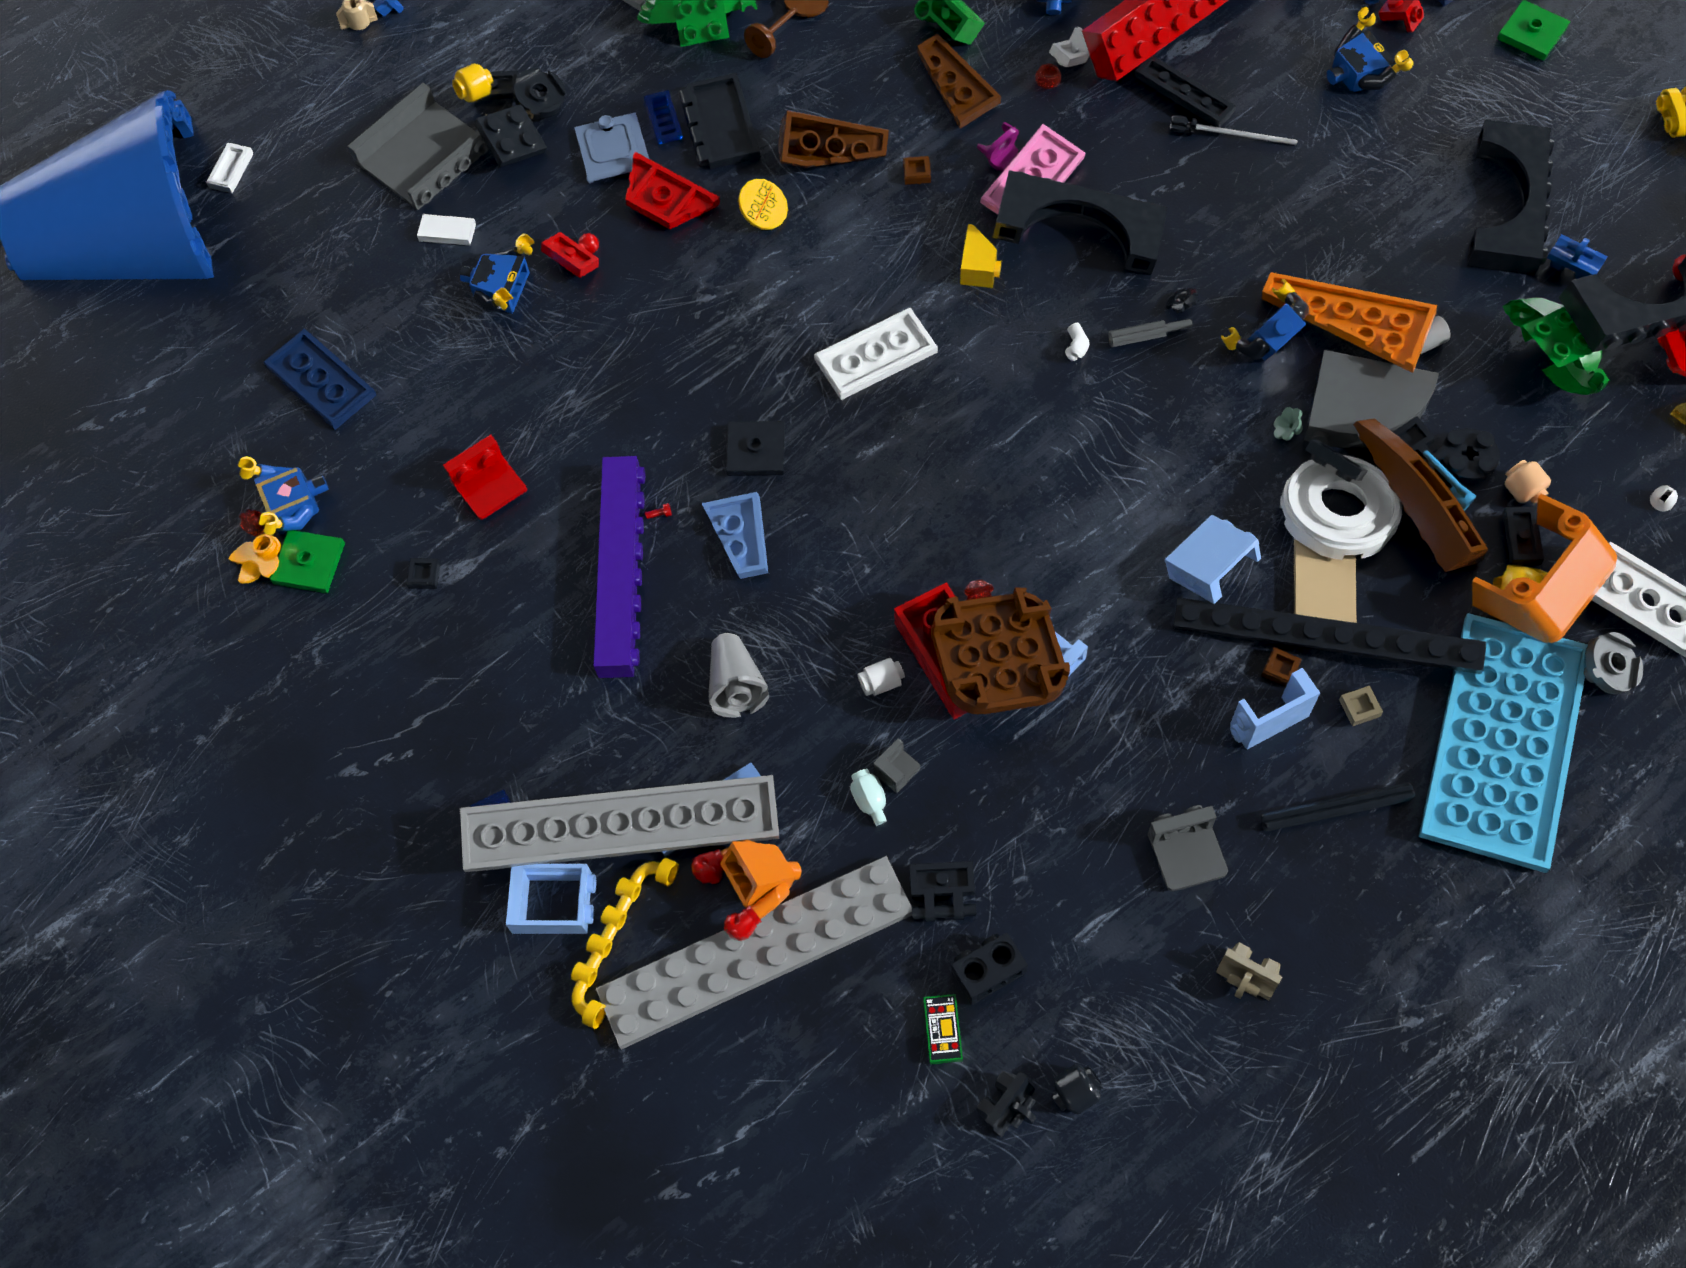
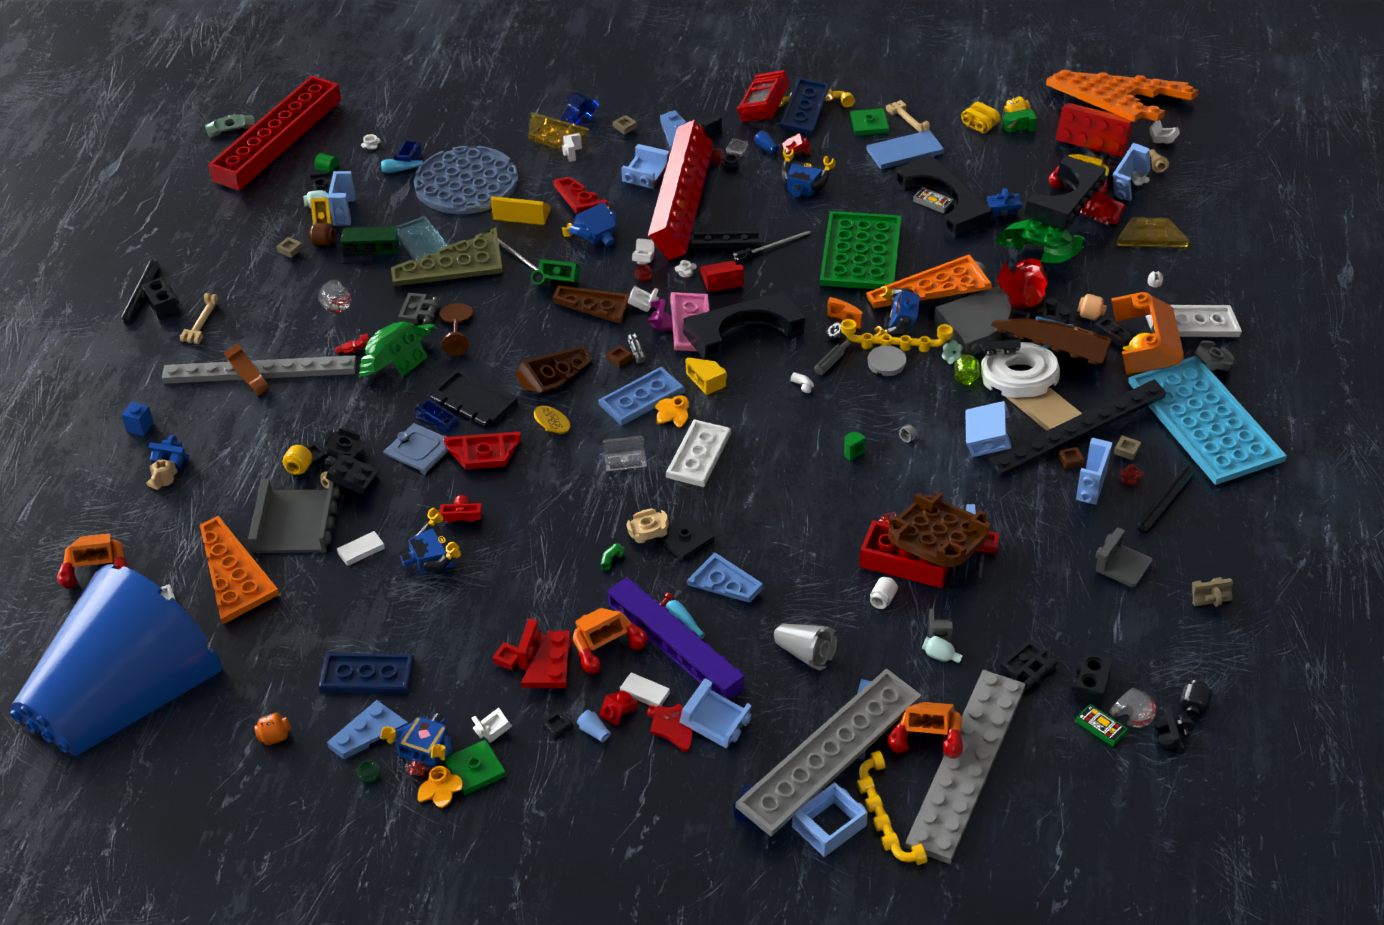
camera: 45 degrees left, 20 degrees down
(180, 378) = (272, 729): none -> orange head
(214, 64) = (90, 551): none -> orange torso
(216, 490) = (368, 771): none -> clear green plate
(265, 442) = (364, 730): none -> medium blue wing
(312, 177) = (234, 573): none -> orange wing
(358, 528) = (492, 725): none -> white bracket
(445, 454) = (506, 656): none -> red plate
(447, 601) = (592, 725): none -> light blue cone
(478, 498) = (550, 662): none -> red wing
(492, 598) = (616, 705): none -> red bracket
(521, 662) = (667, 725): none -> red arm
(536, 601) = (645, 690): none -> white tile
(550, 497) = (600, 628): none -> orange torso
(565, 686) = (715, 715): none -> light blue panel
(655, 543) = (679, 611): none -> medium azure piece
(660, 413) = (608, 555): none -> green arm
(715, 409) = (648, 525): none -> tan plate
(795, 300) = (624, 453): none -> clear panel
(889, 237) = (641, 395): none -> medium blue tile
(898, 280) = (670, 410): none -> light orange plate
(943, 172) = (636, 348): none -> dark grey axle
(996, 1046) = (1137, 706): none -> clear helmet
(1010, 110) = (642, 299): none -> white bracket
(1043, 466) = (854, 445): none -> green brick
(1065, 704) = (991, 544): none -> red plate
(1101, 101) = (685, 268): none -> white plate
(1123, 495) = (907, 433): none -> light grey hinge
(1129, 137) = (722, 276): none -> red bracket
(1202, 380) = (887, 360): none -> light grey tile
(1218, 287) = (844, 310): none -> orange slope
(1278, 459) = (966, 369): none -> clear neon green head
(1294, 391) = (944, 333): none -> yellow bar
(1324, 751) = (1131, 474): none -> clear red plate
(1328, 208) = (860, 250): none -> green plate
(1466, 395) = (1026, 286): none -> red animal
(1494, 194) = (933, 200): none -> tile
(1537, 98) = (904, 149): none -> medium blue tile
(1591, 80) = (900, 108): none -> tan hinge

